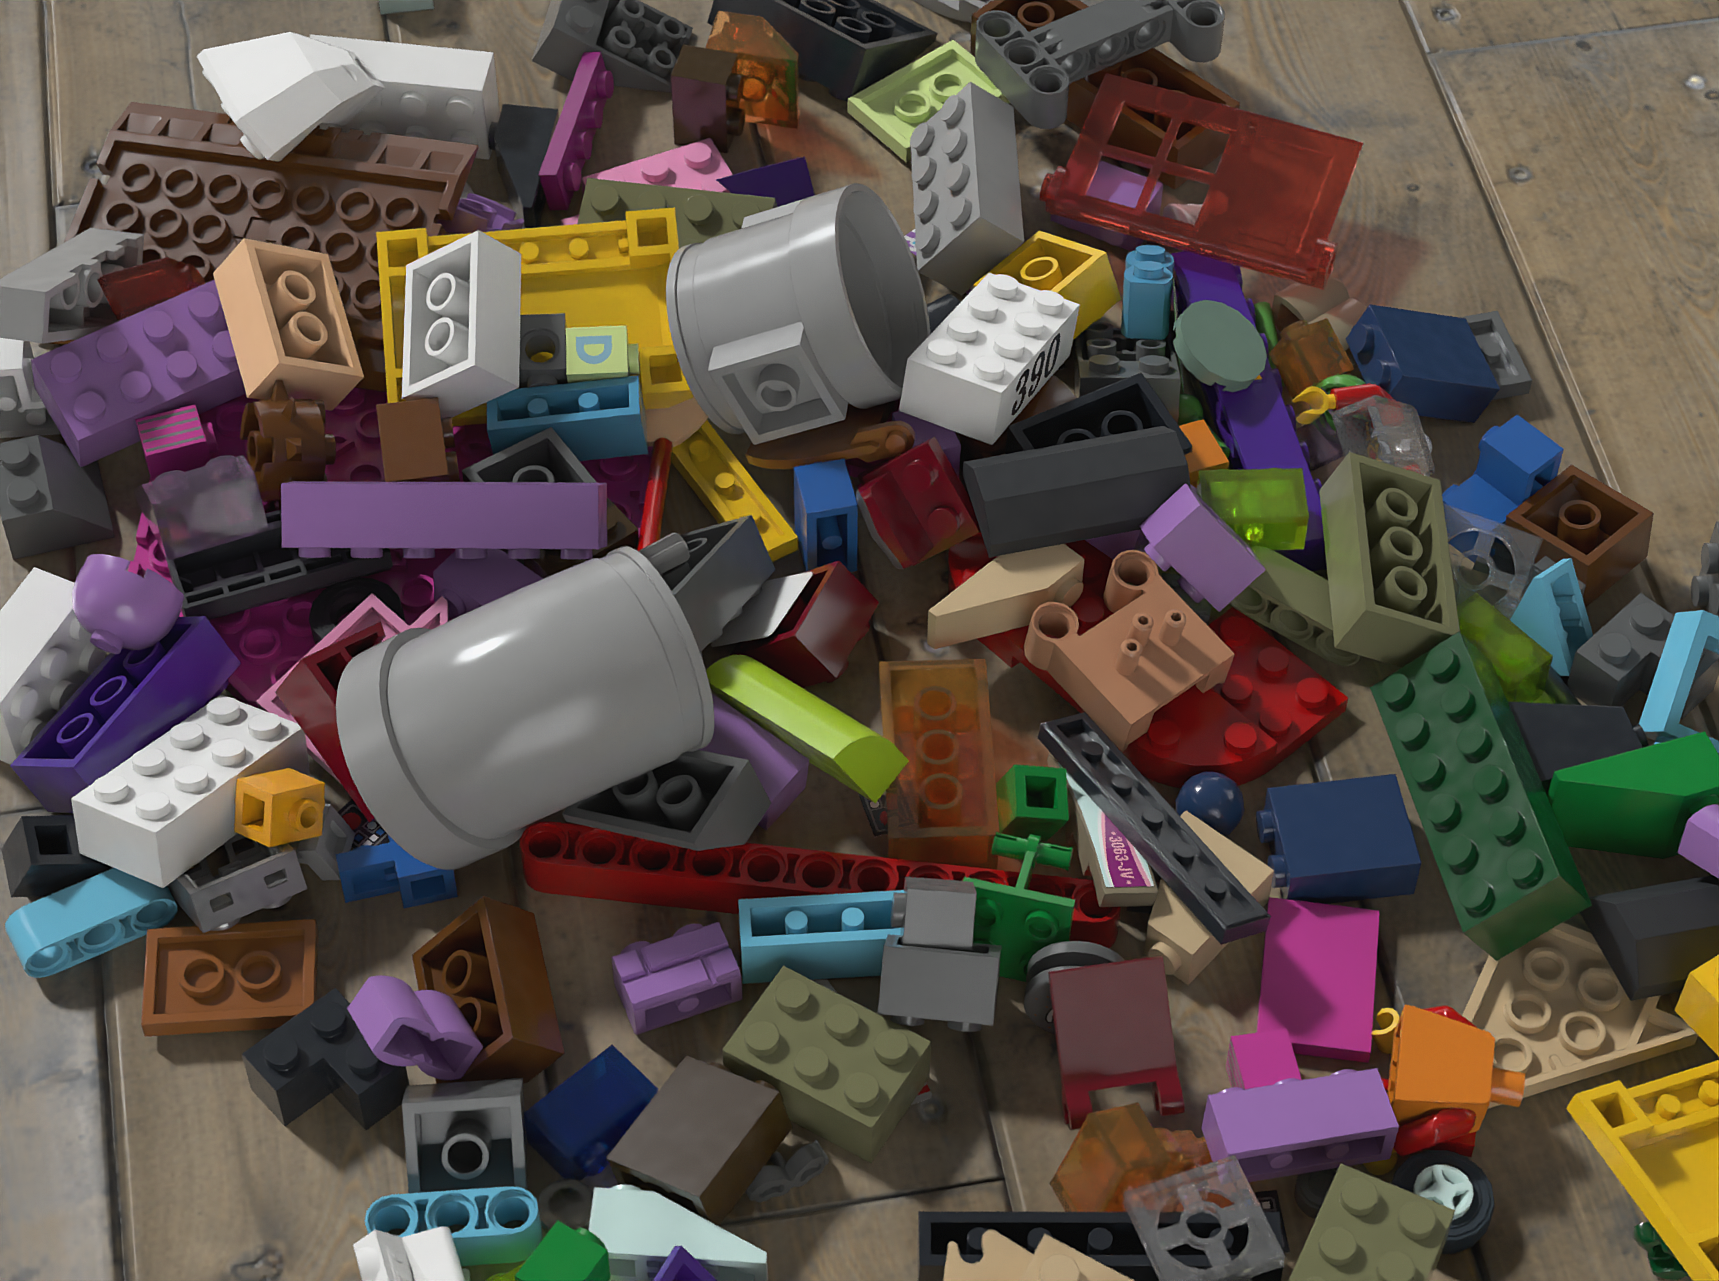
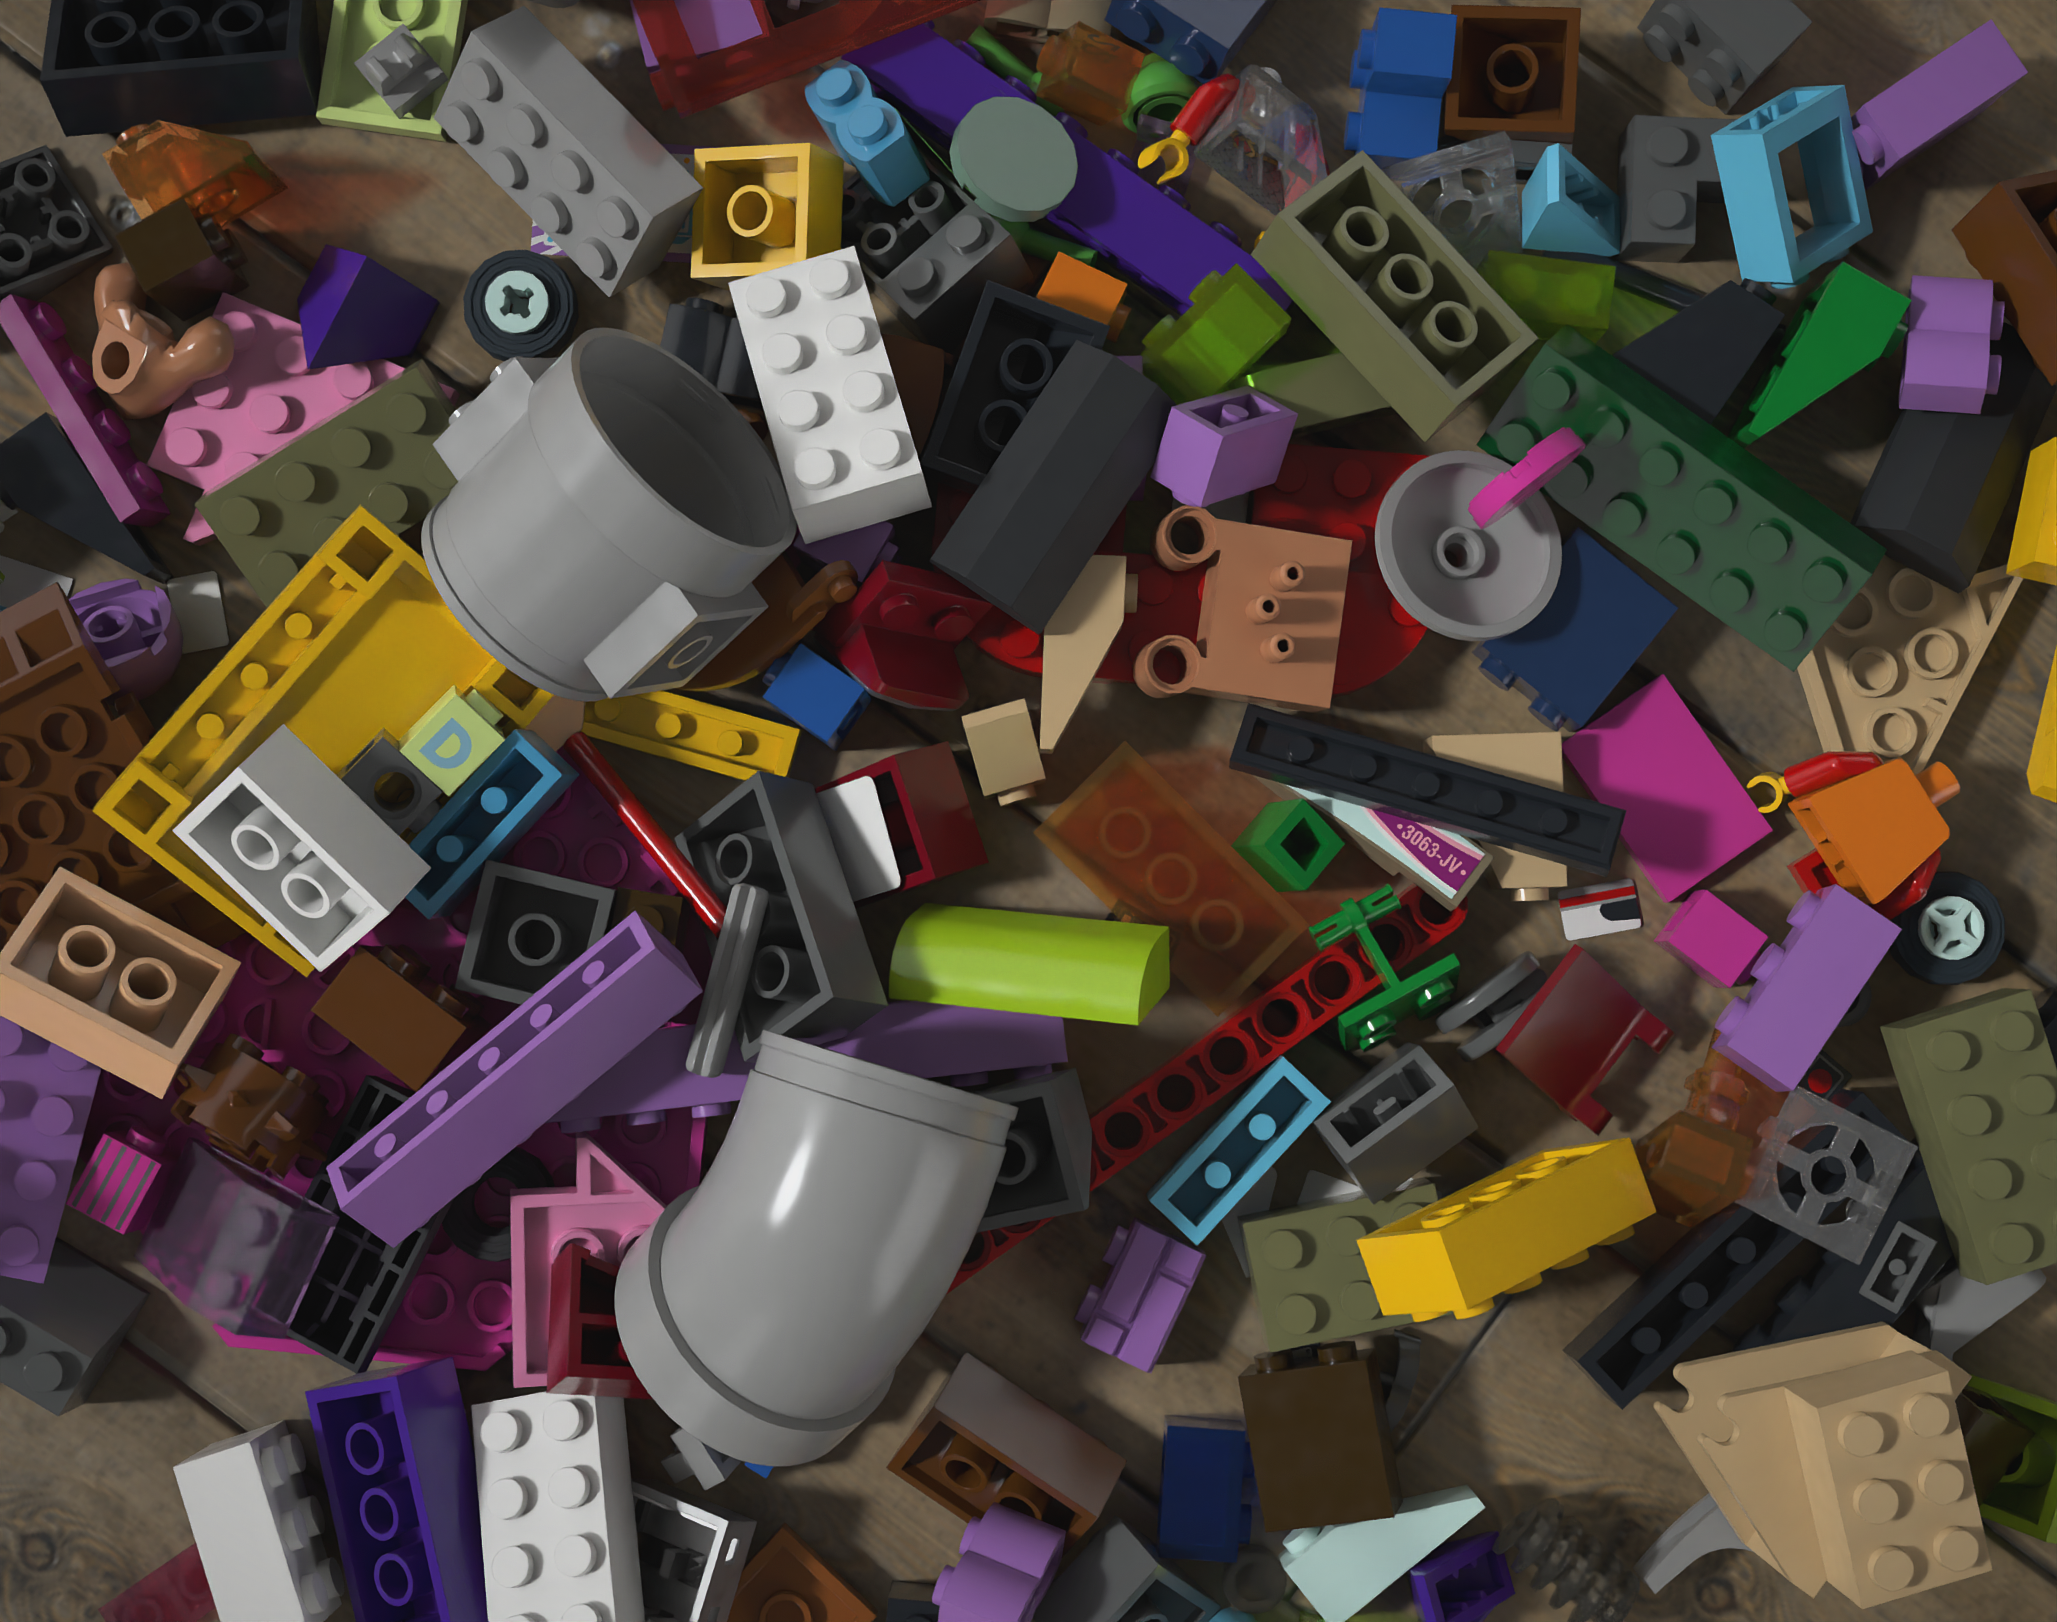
camera: 45 degrees left, 35 degrees up
(123, 606) = (306, 1436): medium lavender cylinder -> none
(279, 807) = (664, 1488): light orange brick -> none
(639, 127) = (138, 353): none -> nougat head
(903, 615) = (1005, 752): none -> tan slope
(914, 102) = (401, 71): none -> light grey tile
(935, 913) = (1354, 1082): dark grey brick -> none
(952, 1075) = (1507, 1230): none -> yellow brick
(1206, 1018) = (1599, 909): none -> sticker
(1212, 800) = (1429, 693): dark blue piece -> none
(1309, 715) = (1501, 570): none -> light grey dish
(1377, 682) = (1526, 477): none -> dark pink tile

